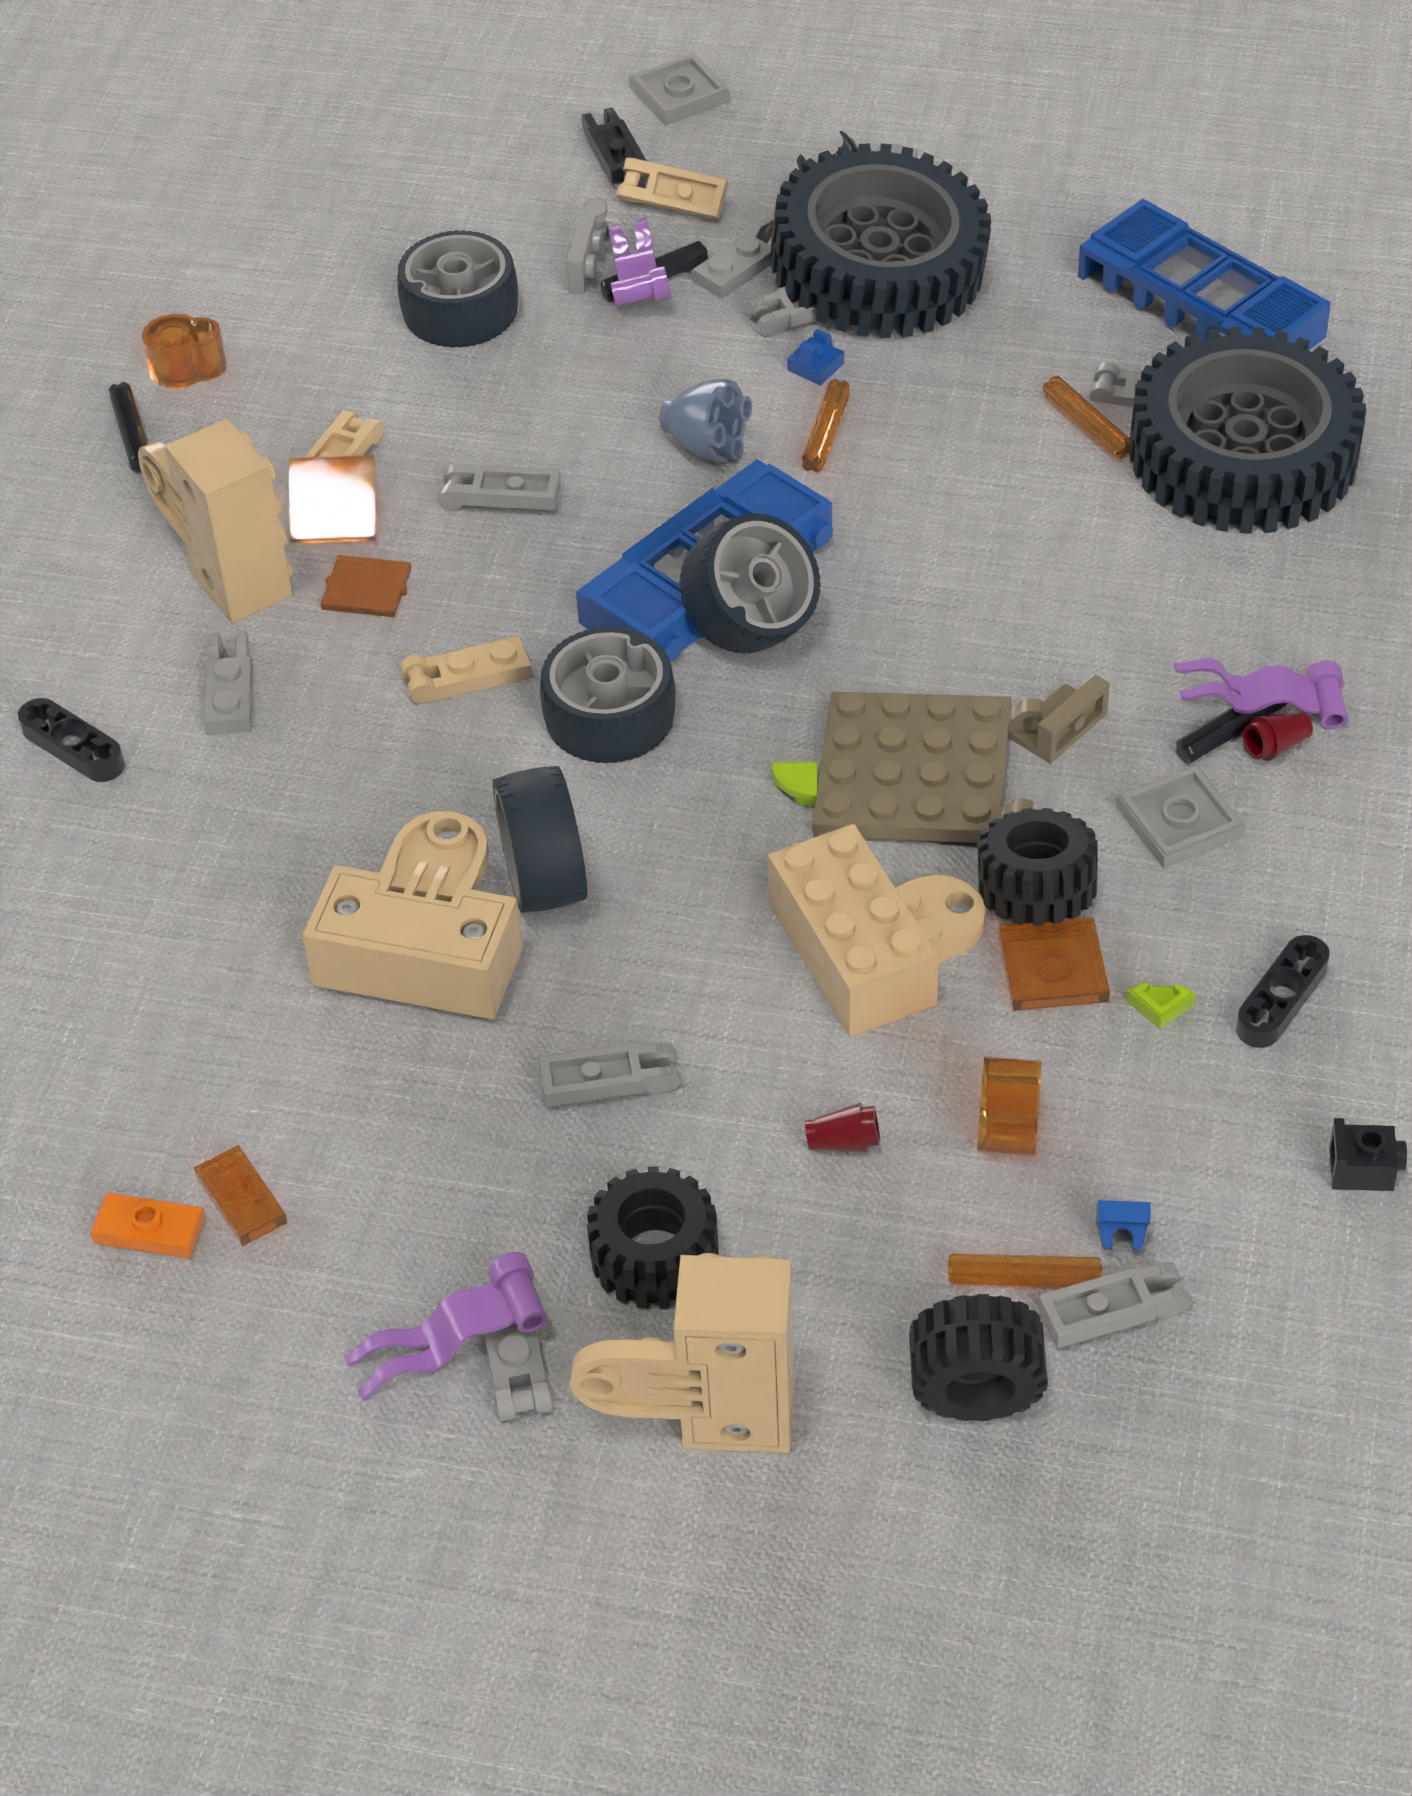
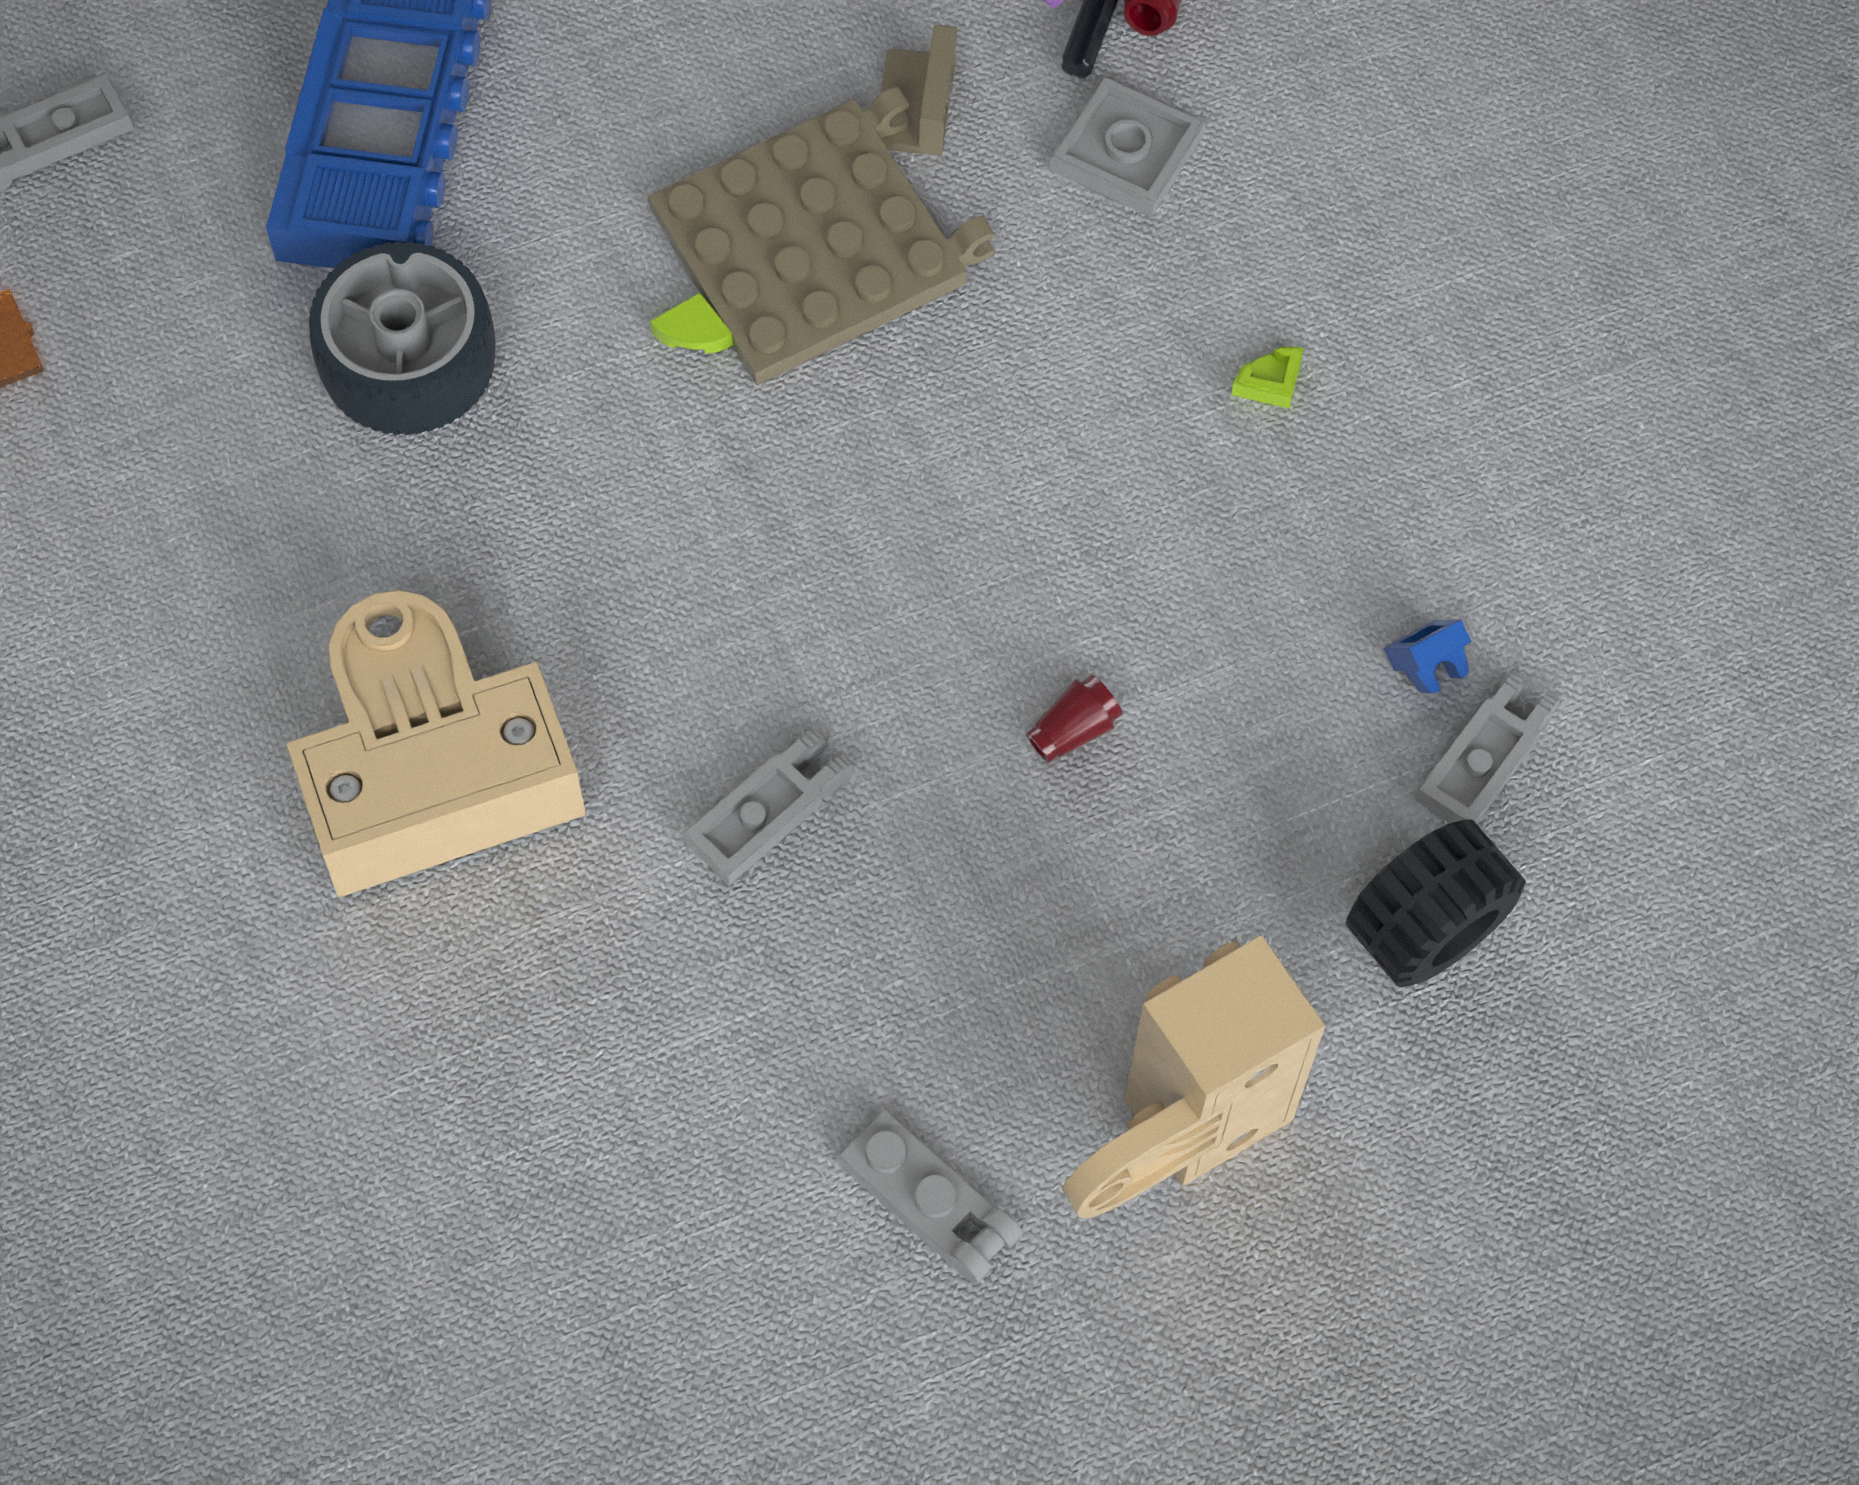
camera: 40 degrees left, 15 degrees up
(148, 1225) = (392, 1310): orange plate -> none
(240, 1195) = (470, 1205): clear orange plate -> none
(458, 1317) = (854, 1204): medium lavender flag -> none
(465, 670) = (195, 393): tan plate -> none
(540, 839) = (492, 568): black wheel -> none
(646, 1204) = (993, 923): black tyre -> none
(750, 583) = (474, 111): wheel -> none
(860, 935) = (920, 468): tan brick -> none
(1009, 1106) = (1228, 590): clear orange piece -> none
(1022, 1270) = (1372, 768): clear orange axle -> none
(1037, 866) = (1041, 257): black tyre -> none
(1053, 964) = (1132, 395): clear orange tile -> none
(1282, 1009) = (1371, 315): black beam -> none
(1365, 1156) = (1602, 439): black brick -> none

